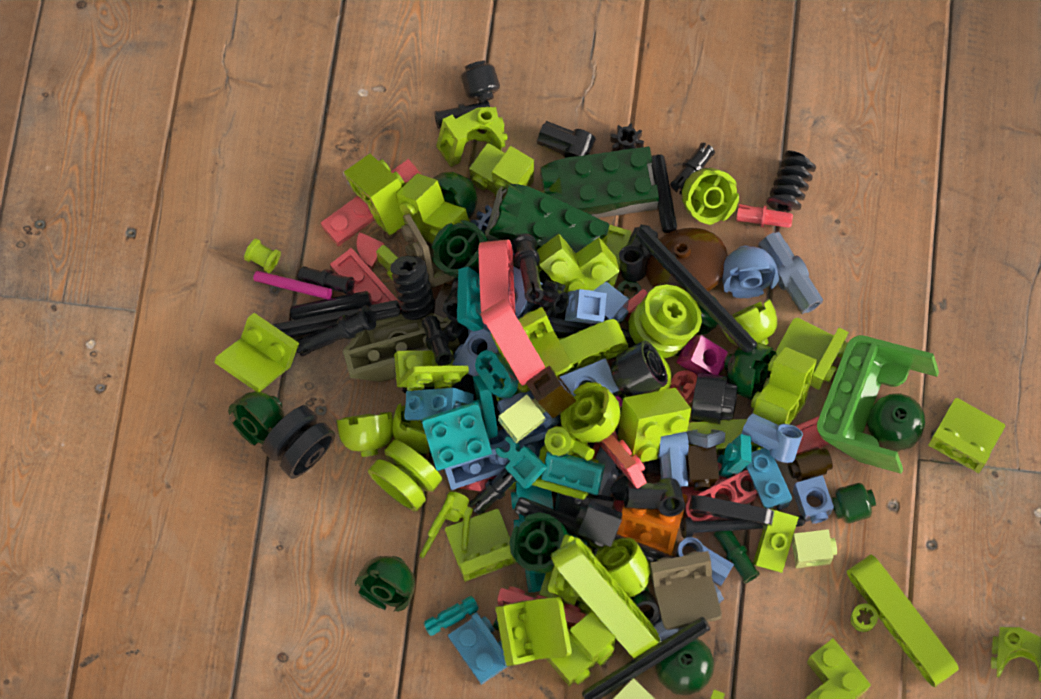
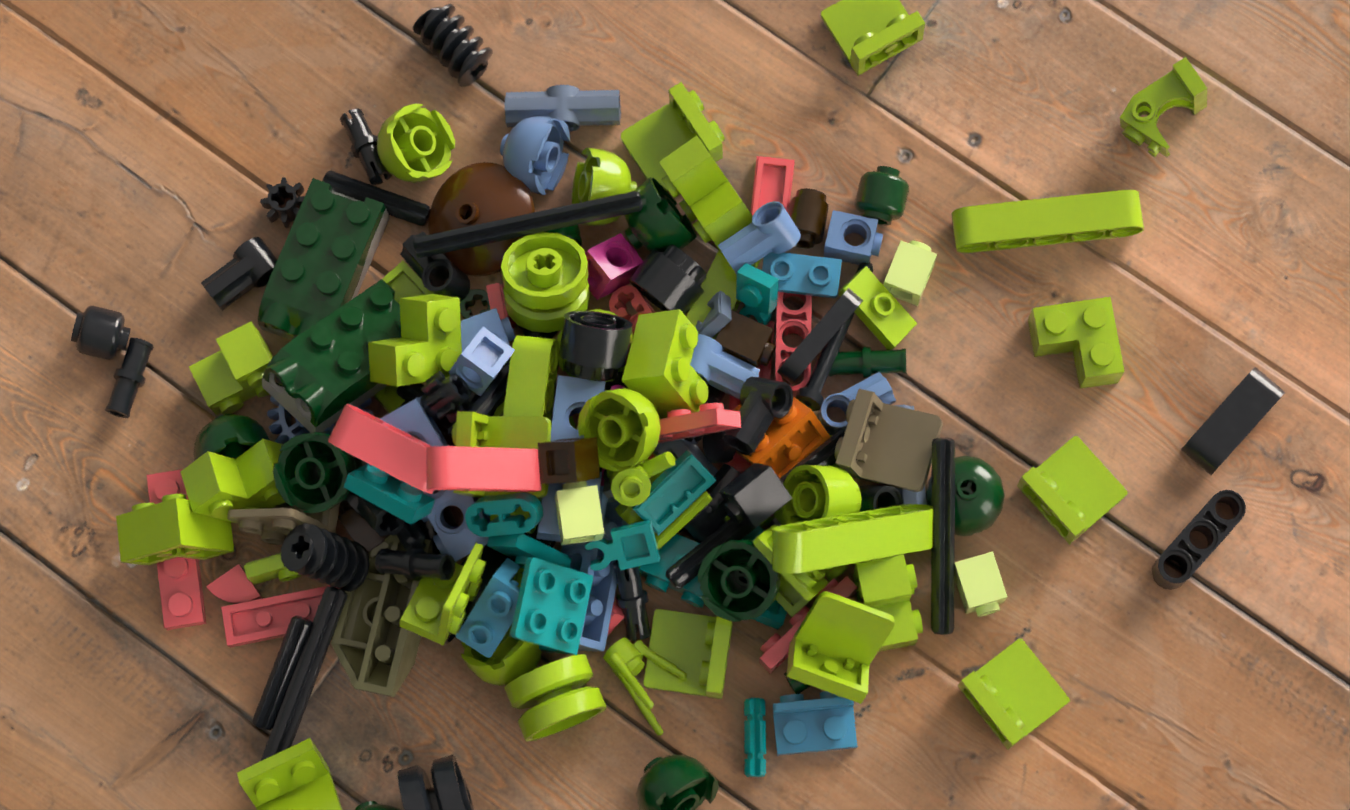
camera: 55 degrees left, 5 degrees up
(262, 255) = (164, 723): lime bush -> none
(293, 285) = (226, 705): dark pink bar -> none
(327, 279) = (245, 660): black pin -> none
(345, 327) = (325, 669): black pin -> none
(366, 432) = (470, 715): lime cylinder -> none
(458, 131) = (153, 394): lime tile -> none
(527, 260) = (382, 397): black pin -> none
(763, 216) = (475, 99): coral axle -> none
(856, 613) = (1029, 255): lime bush -> none
(861, 372) = (728, 89): bright green windscreen -> none
(896, 422) = (811, 94): dark green cylinder -> none

